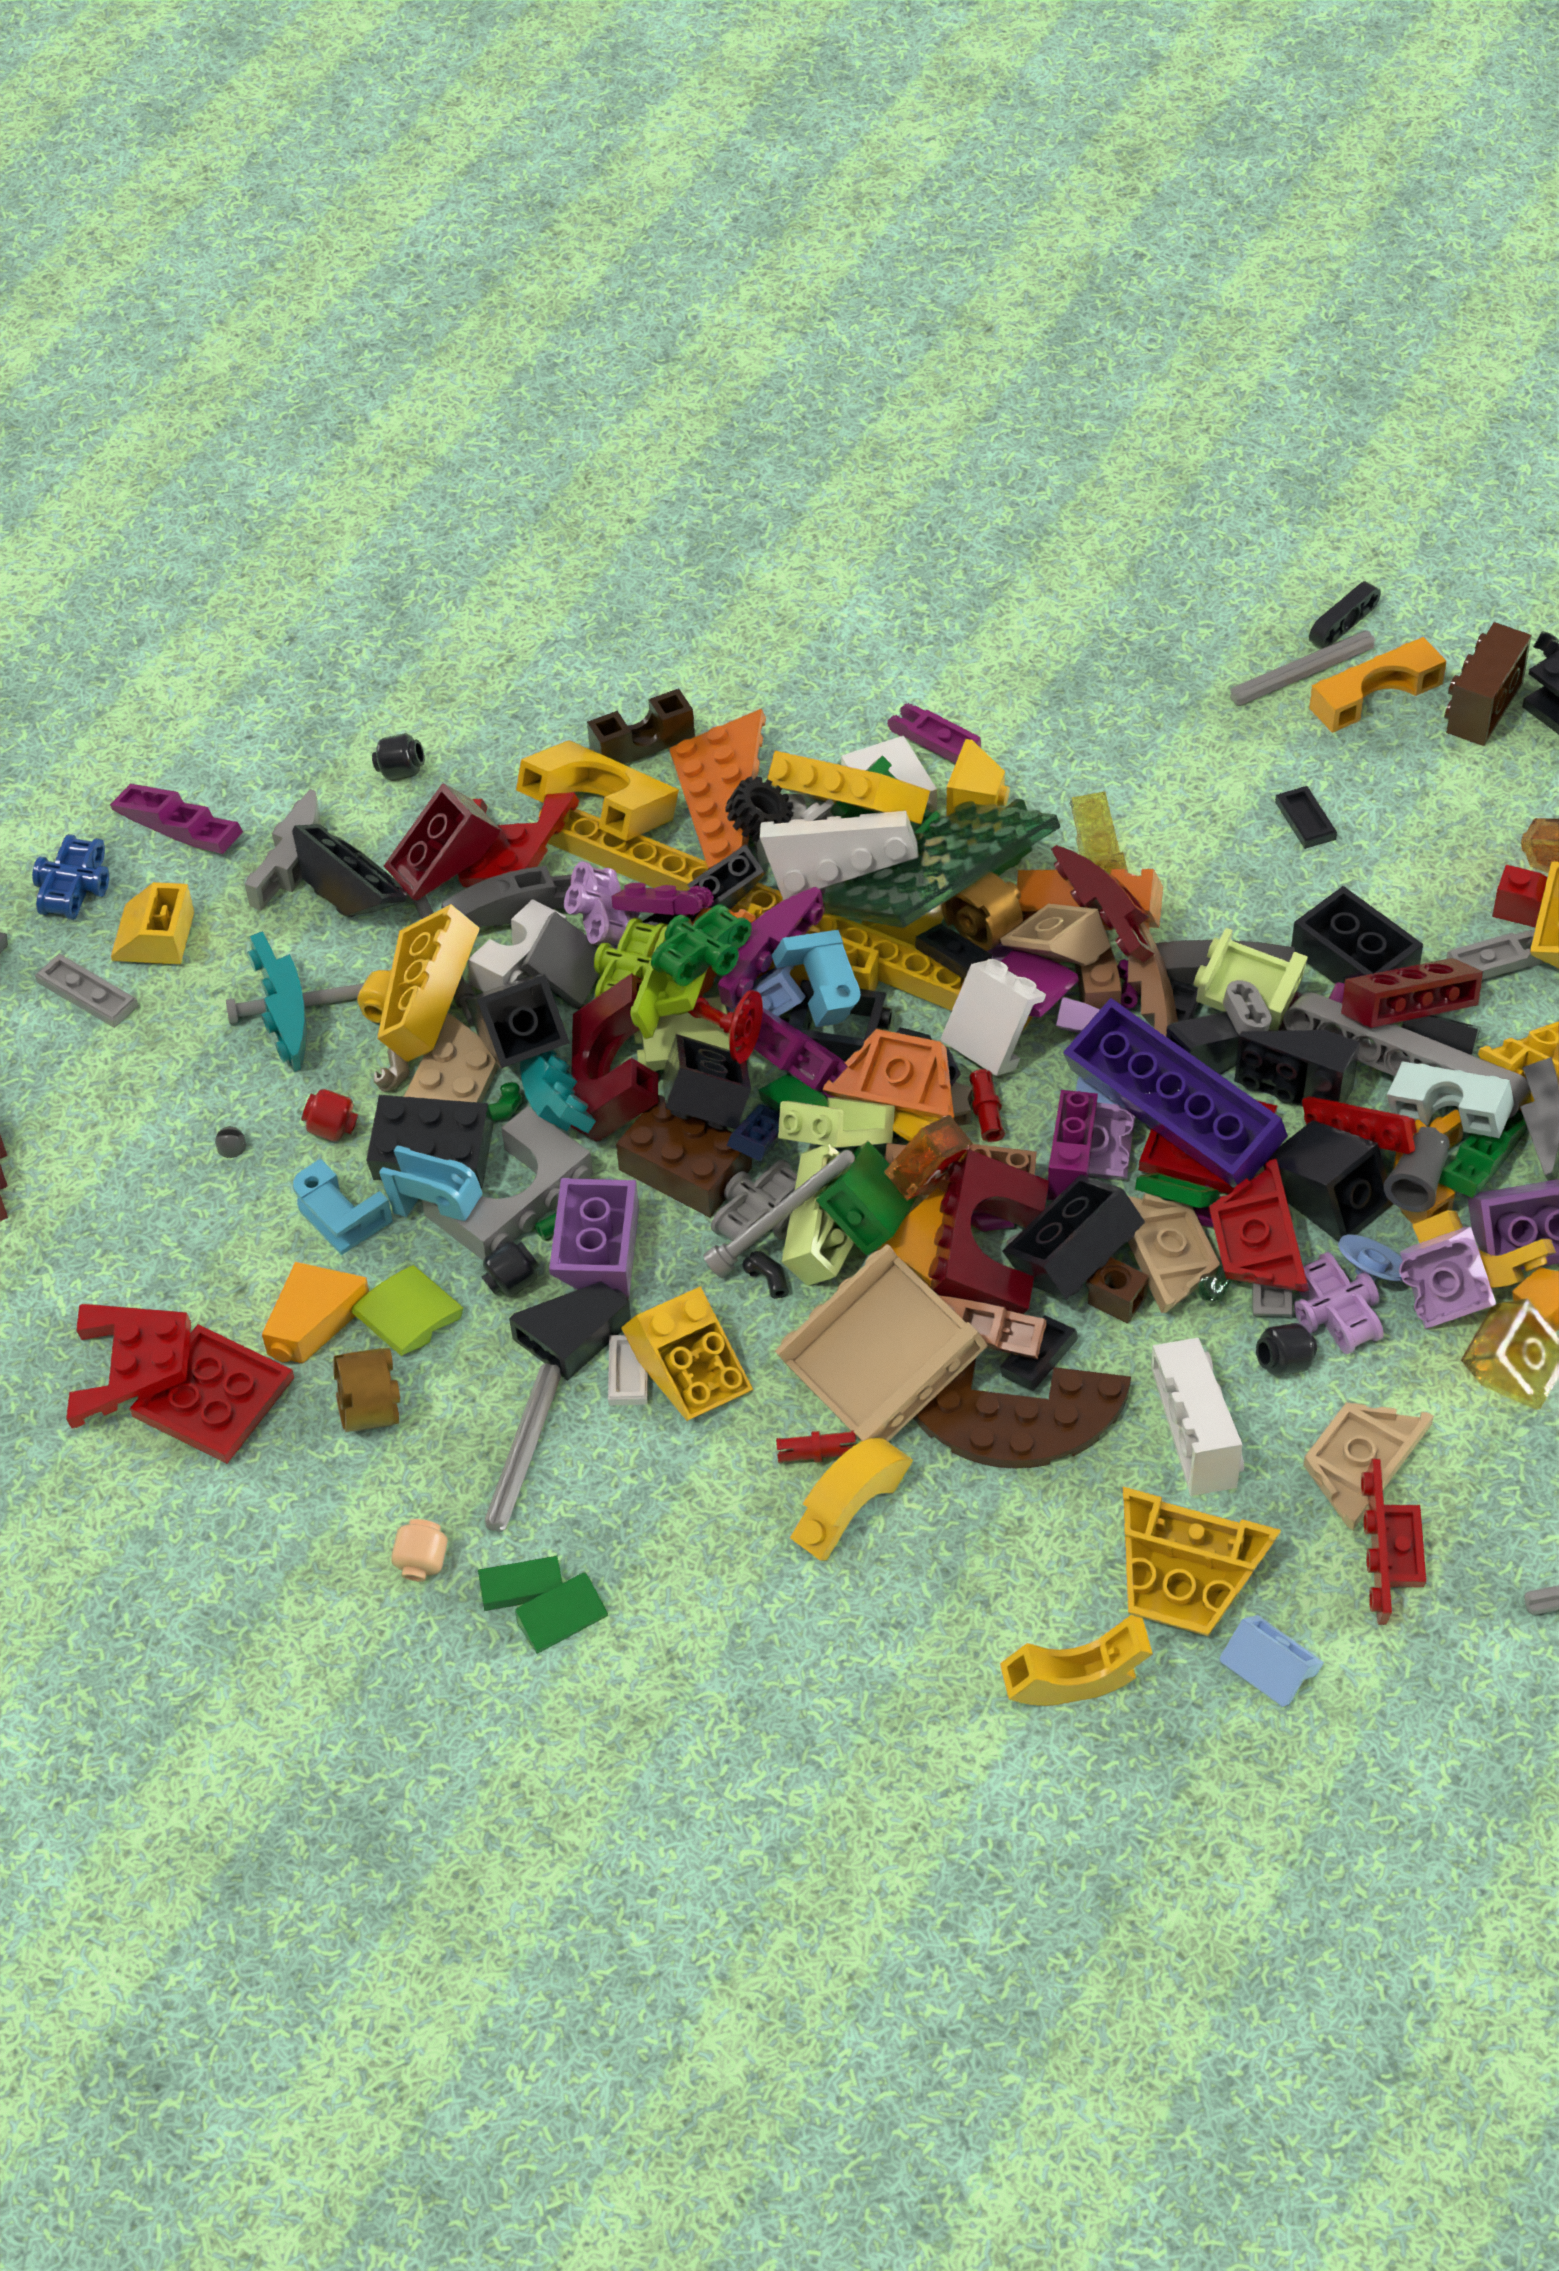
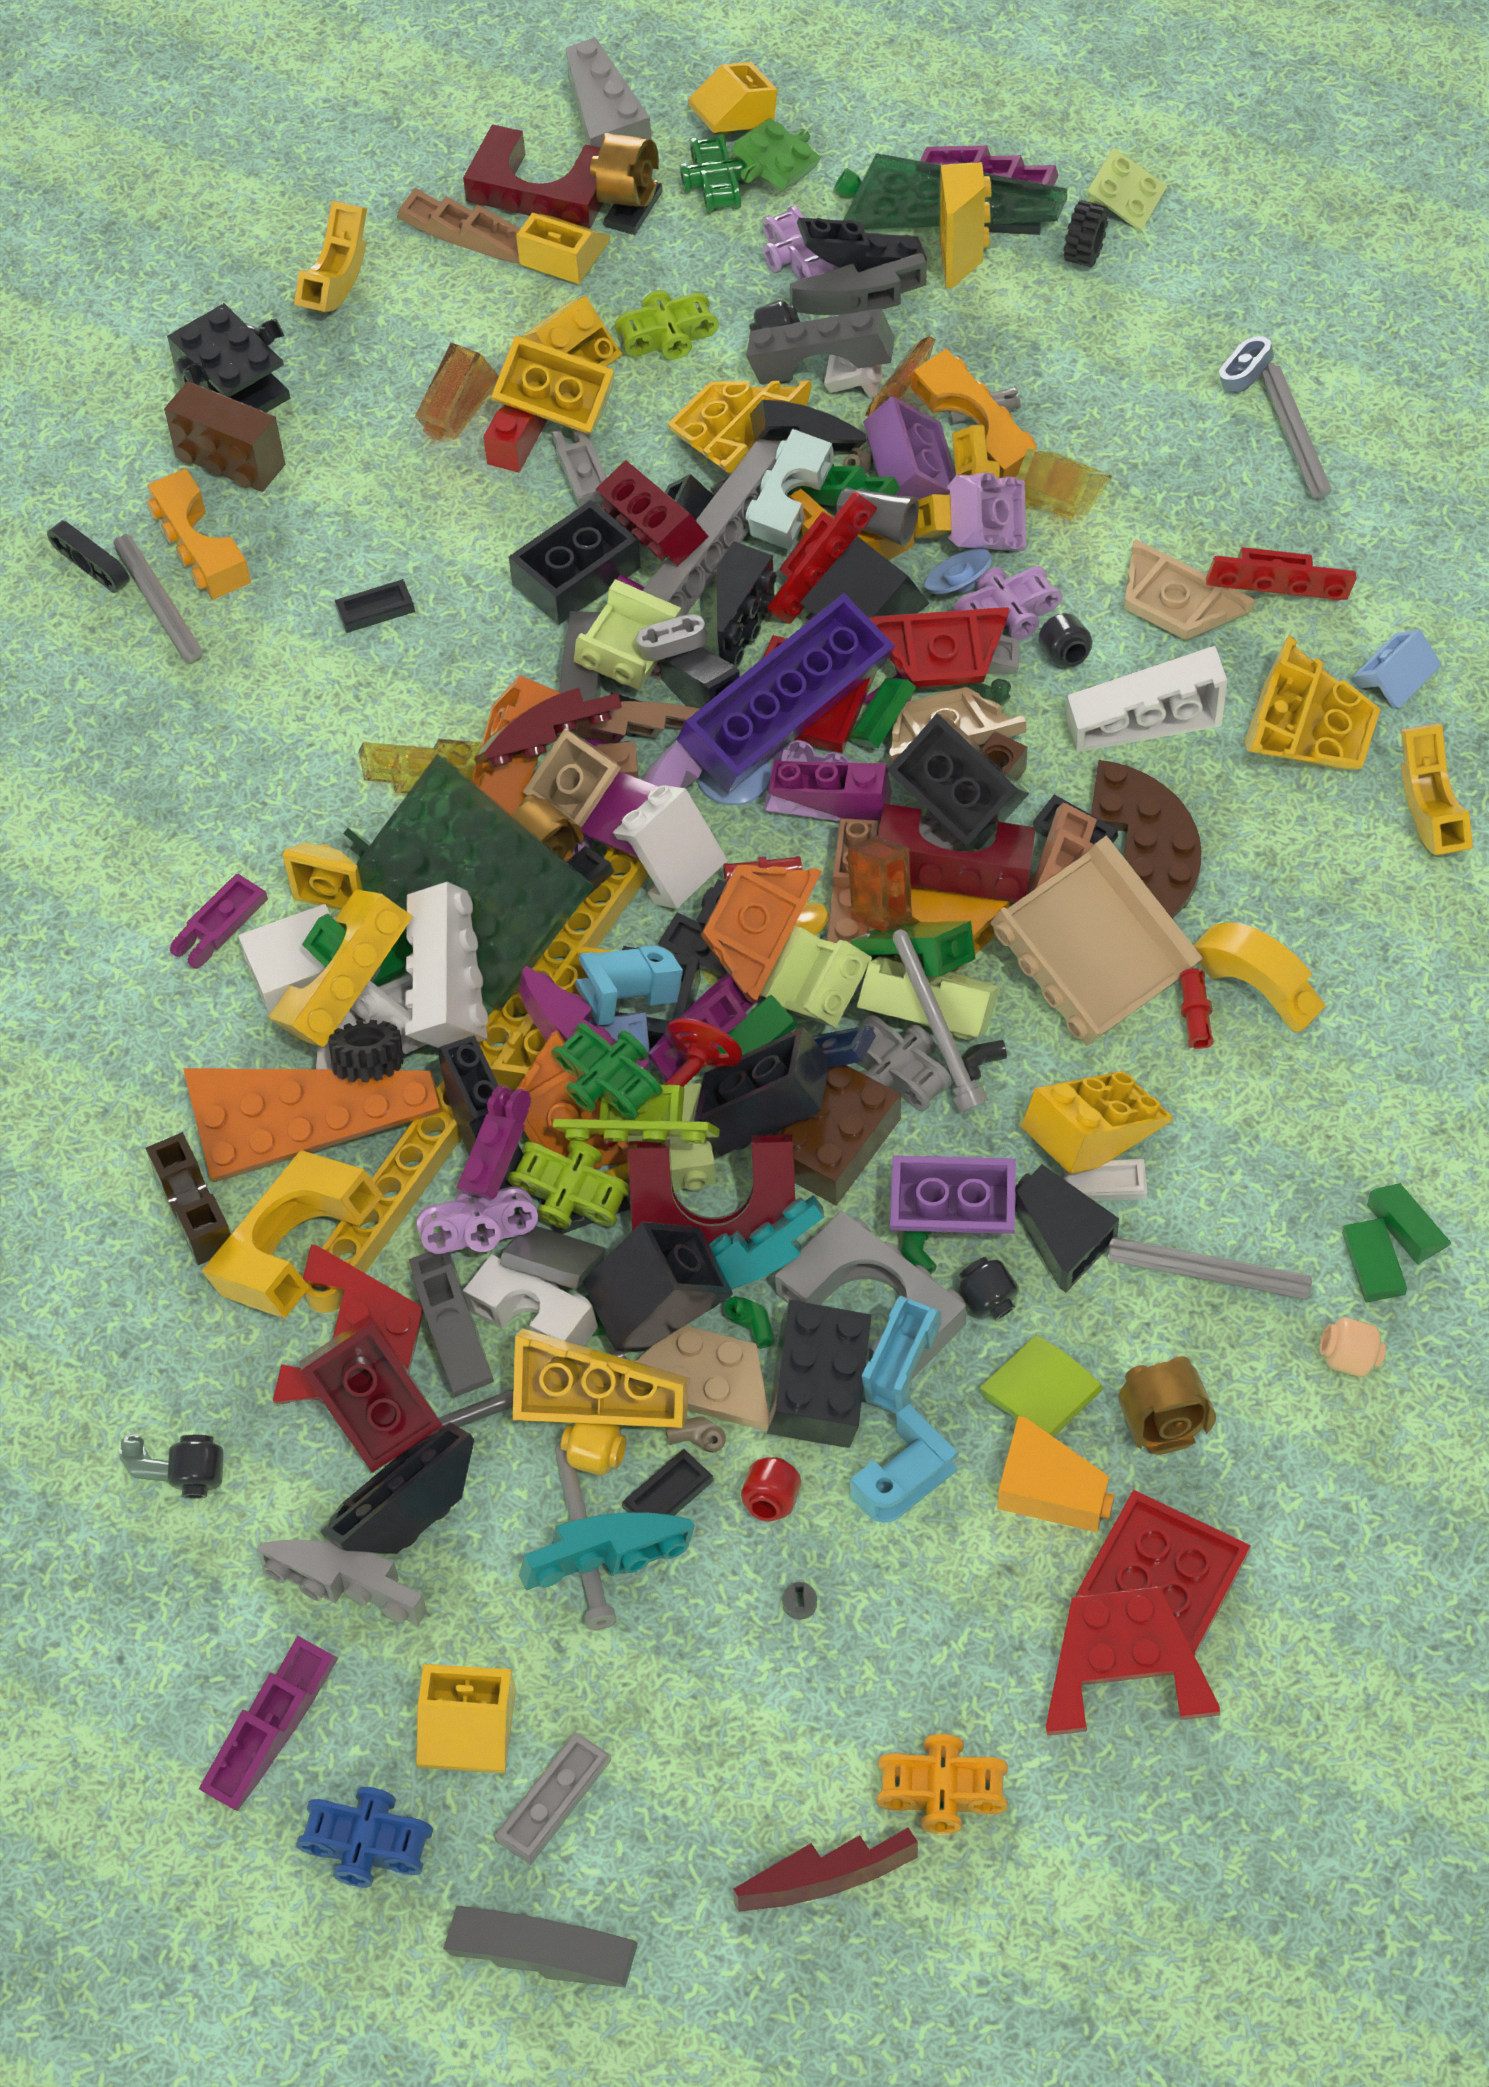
camera: 90 degrees left, 5 degrees up
(45, 1232) = (957, 1784): none -> light orange axle
(343, 1054) = (670, 1487): none -> black tile
(416, 725) = (139, 1462): none -> sand green arm
(1513, 1174) = (859, 458): none -> dark tan arm

